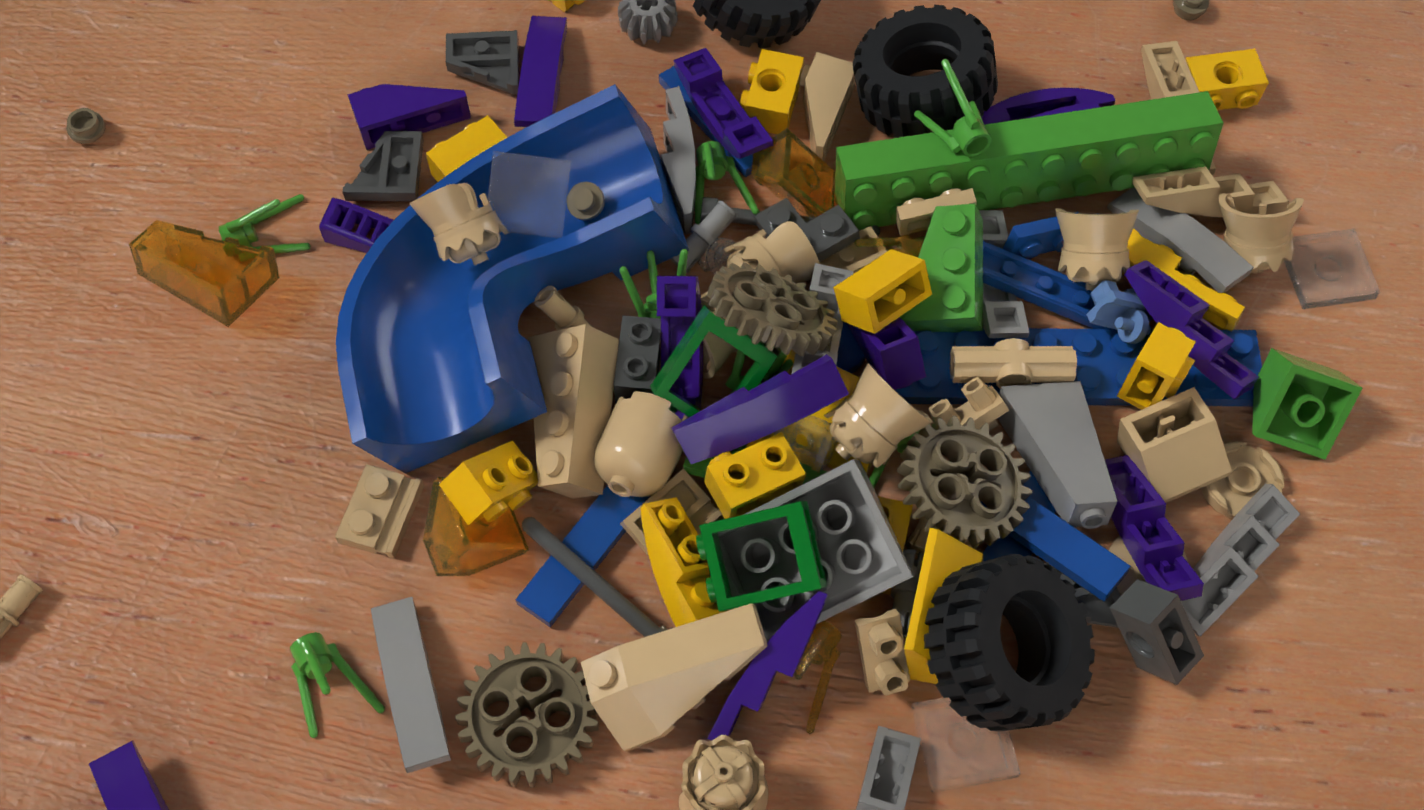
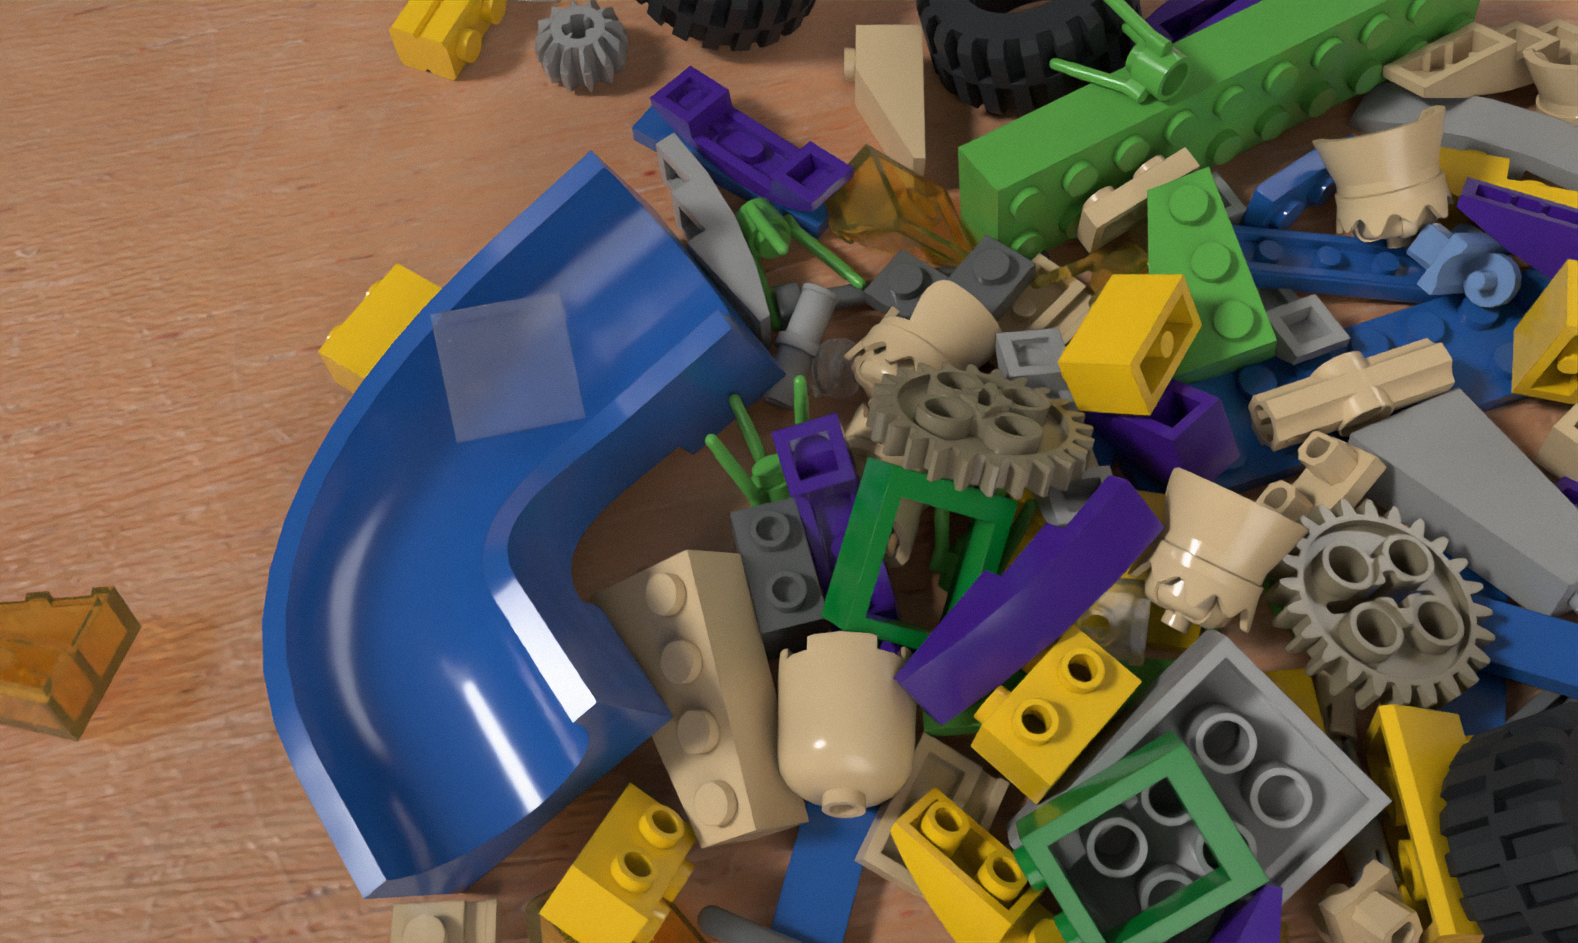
camera: 15 degrees left, 0 degrees up
(246, 234) = (60, 574): bright green plant -> none
(340, 219) = (222, 485): dark purple slope -> none
(390, 170) = (267, 397): dark grey wing -> none
(405, 109) = (254, 299): dark purple slope -> none
(458, 223) = (416, 452): tan hat -> none
(485, 58) = (359, 180): dark grey wing -> none
(540, 70) = (452, 175): dark purple slope -> none
(559, 309) = (635, 541): tan pin -> none
(585, 201) = (601, 348): dark tan plate -> none
(773, 89) = (811, 95): yellow brick -> none

